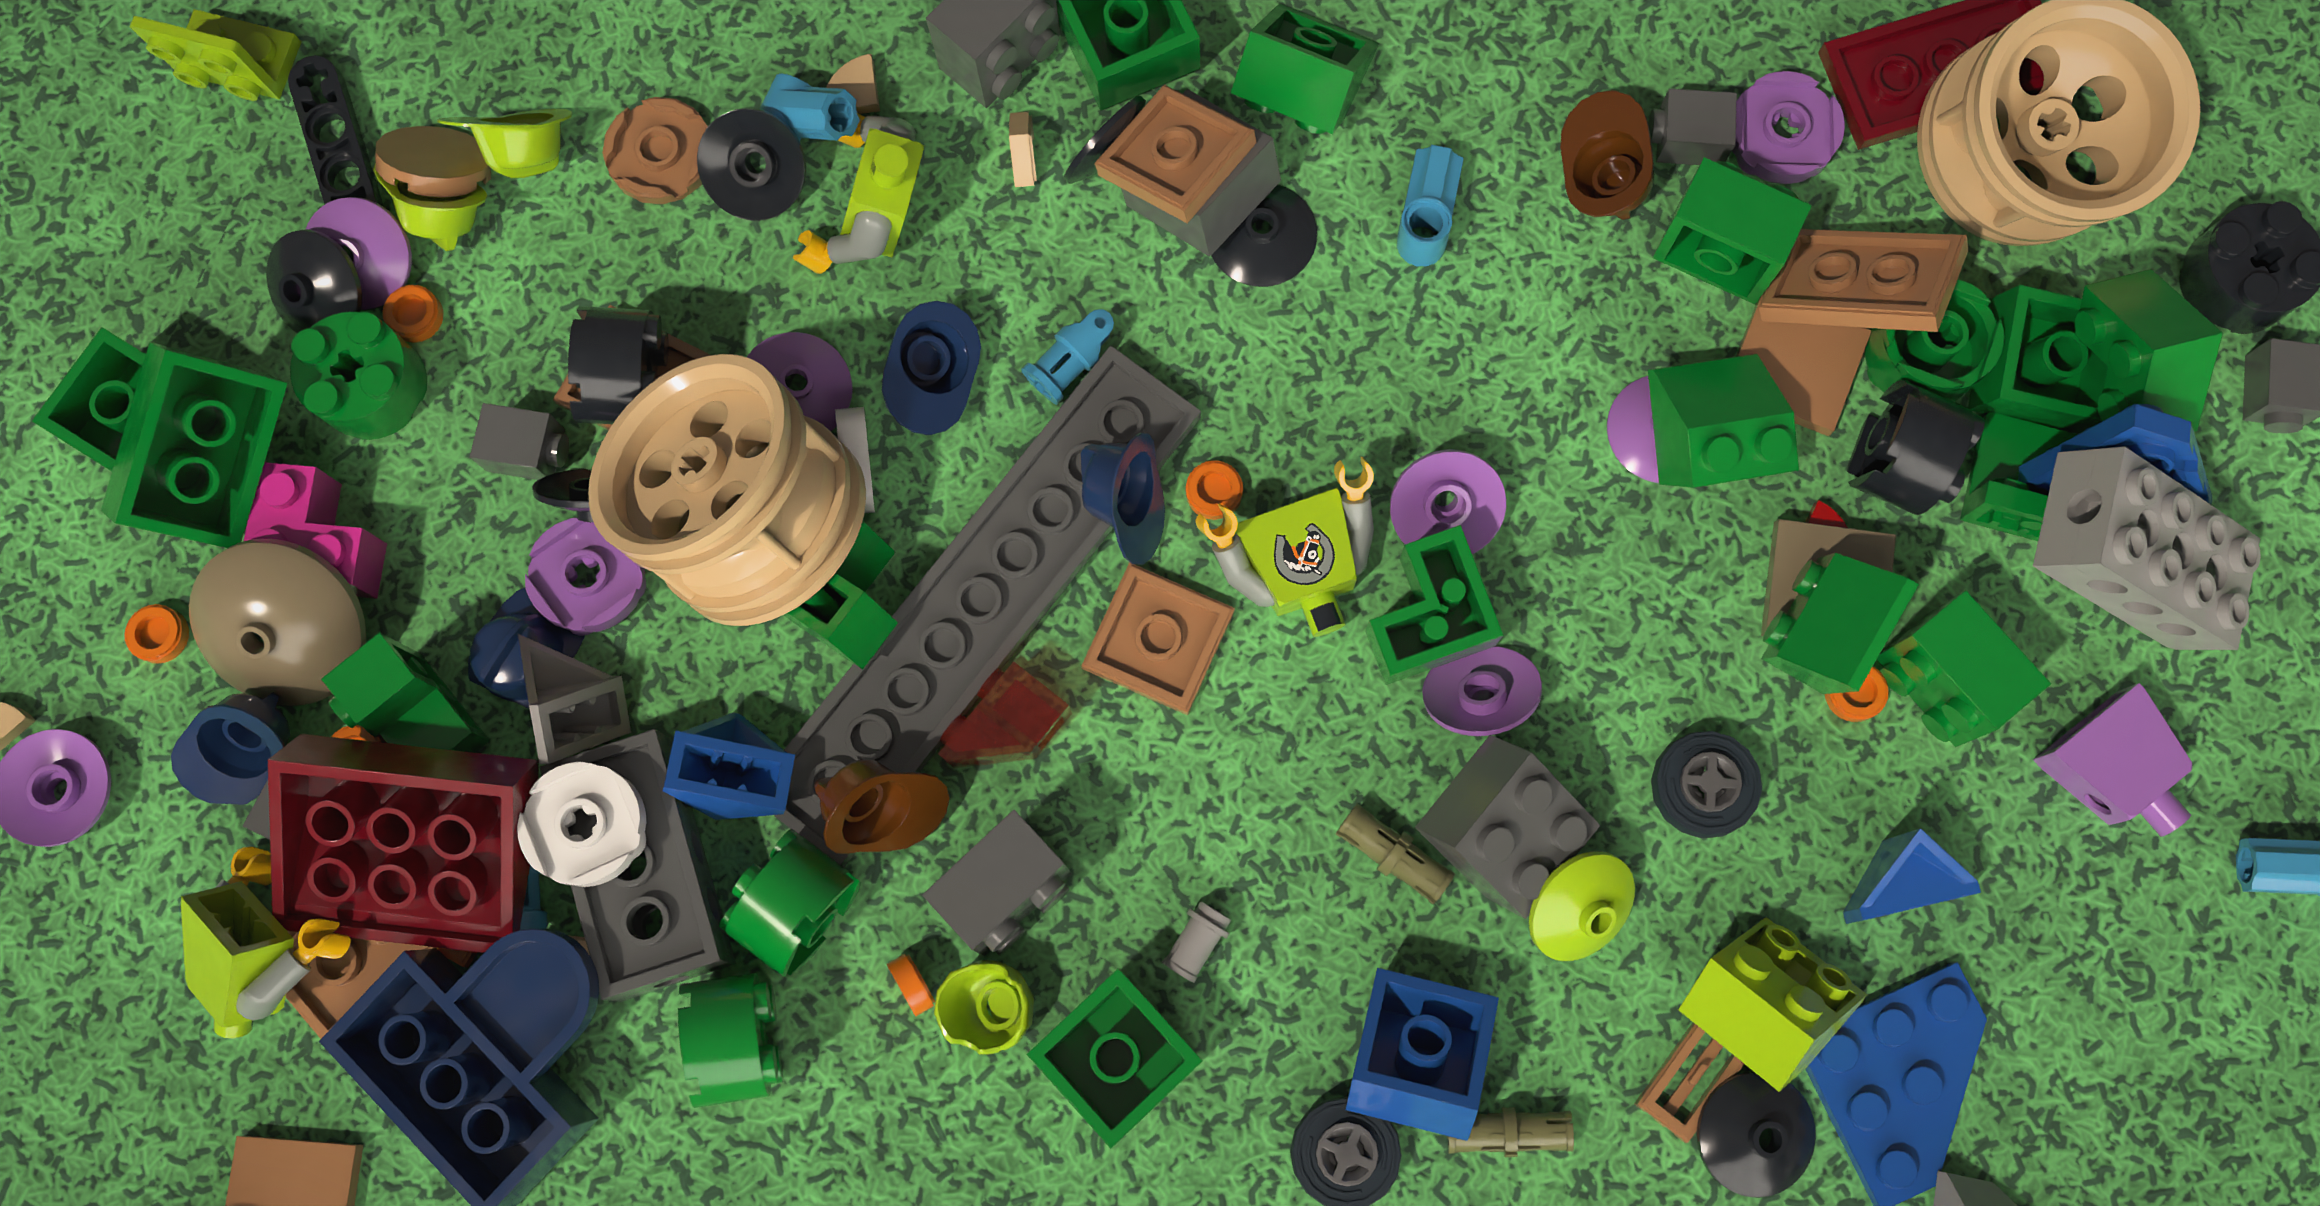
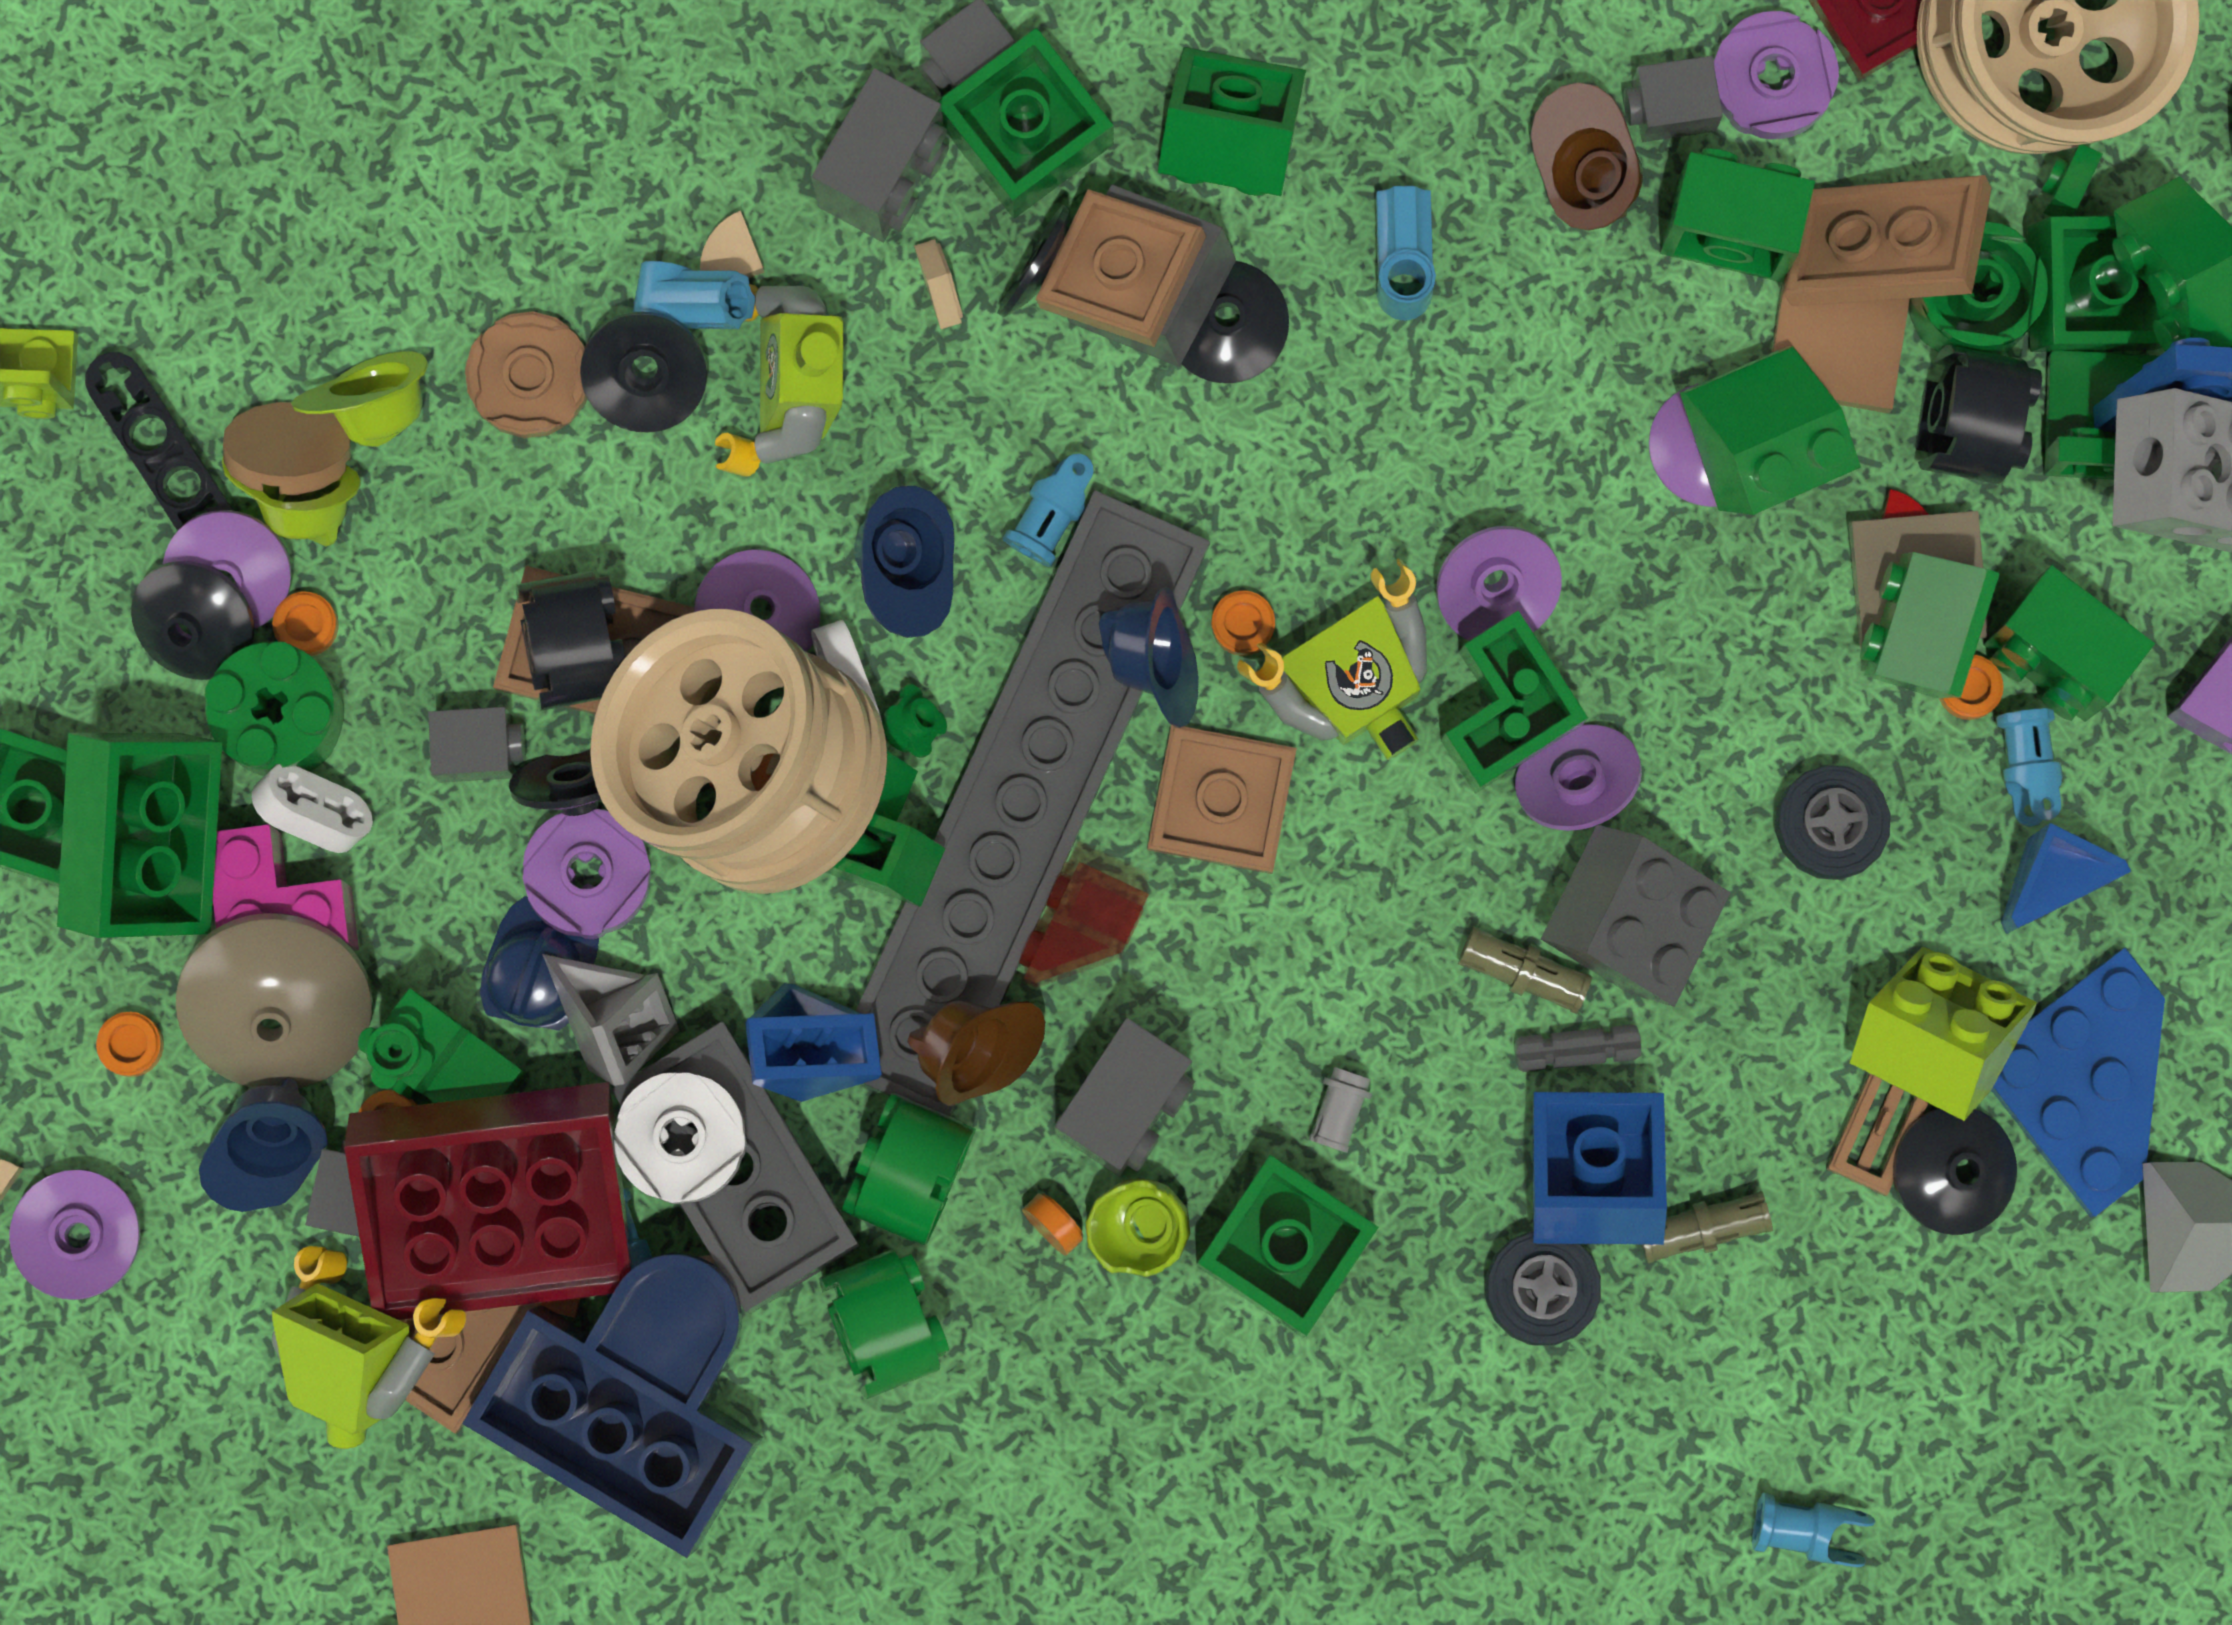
camera: 20 degrees left, 5 degrees up
(328, 679) = (377, 1046): none -> green plate
(362, 464) = (312, 808): none -> white beam
(902, 509) = (913, 722): none -> green plate
(1427, 936) = (1577, 1048): none -> dark grey axle
(1582, 906) = (1730, 980): lime dish -> none
(1901, 773) = (2031, 767): none -> dark azure piece
(2035, 266) = (2069, 181): none -> green plate

